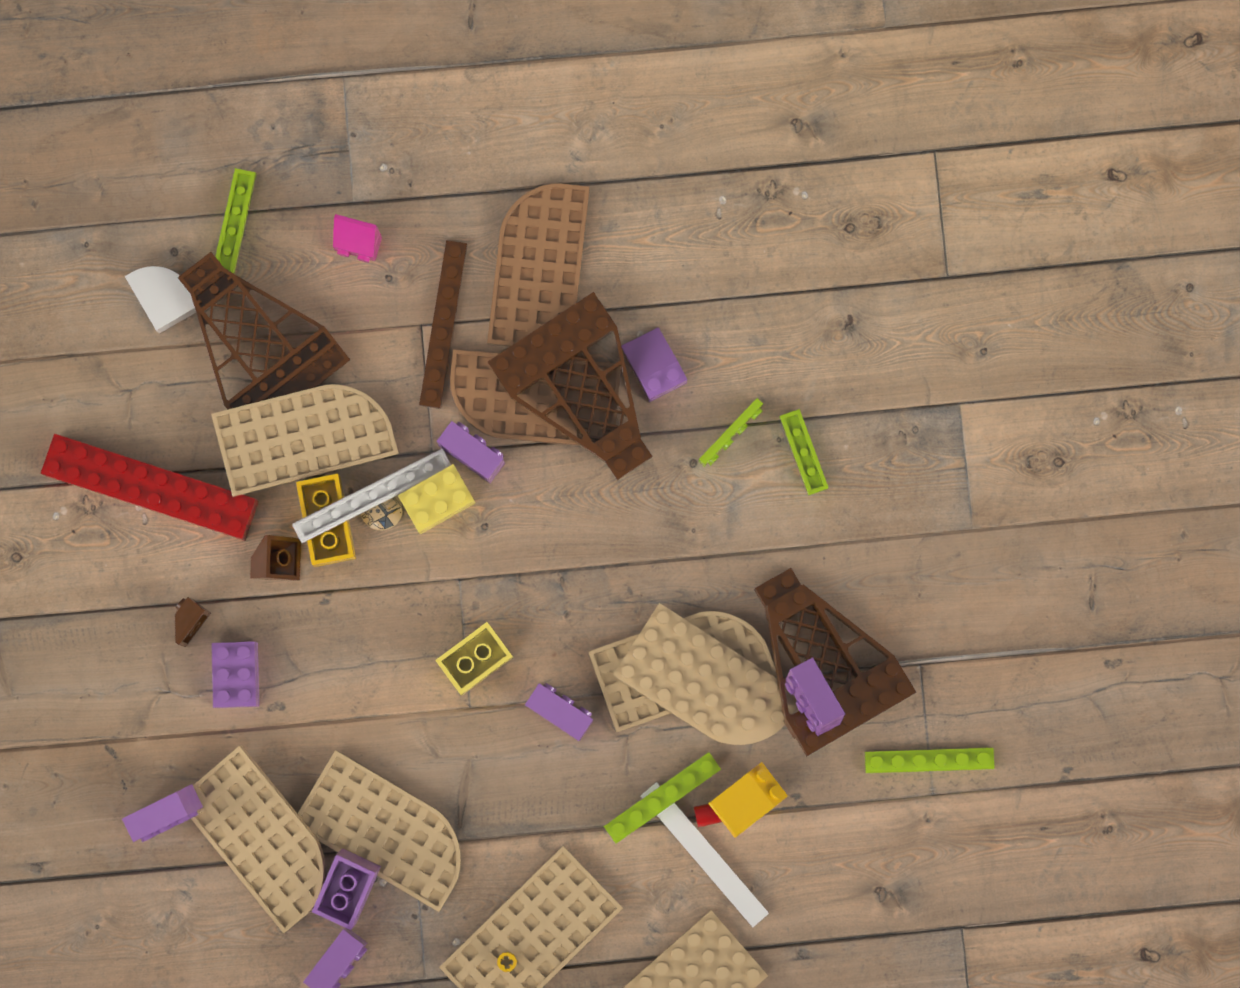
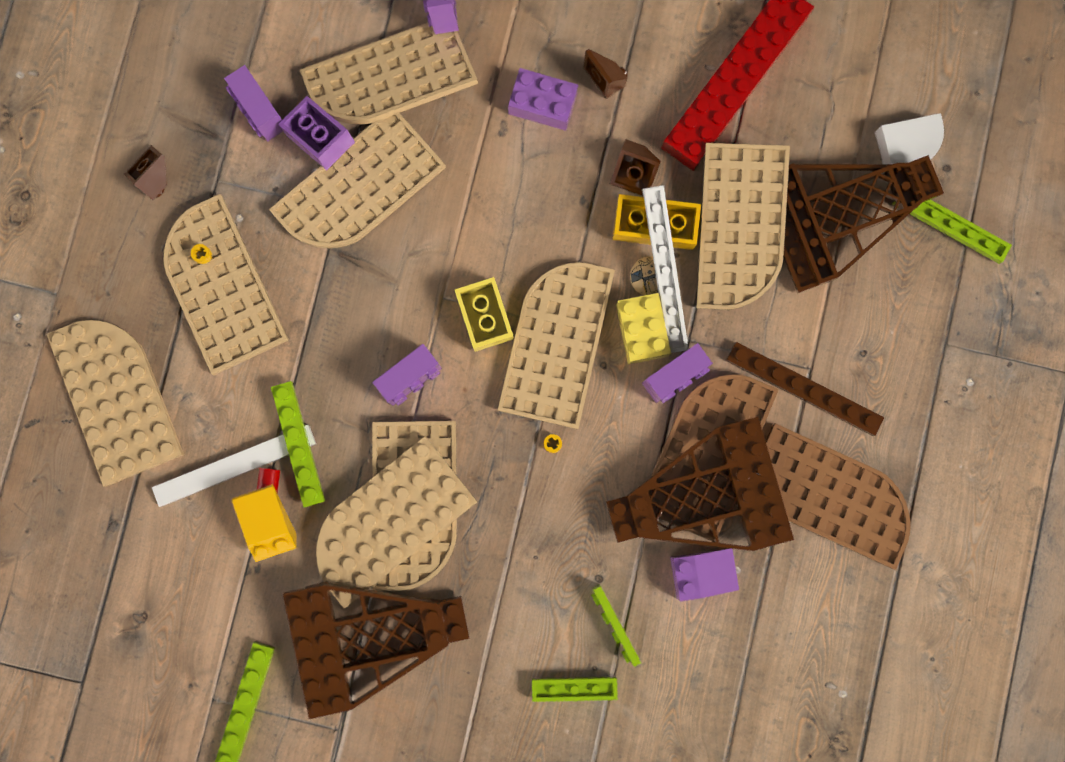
camera: 105 degrees right, 0 degrees up
(356, 238) = (914, 332): dark pink slope -> none
(479, 578) = (557, 344): none -> tan plate
(571, 550) = (550, 449): none -> yellow bush
(814, 697) = (330, 621): medium lavender brick -> none

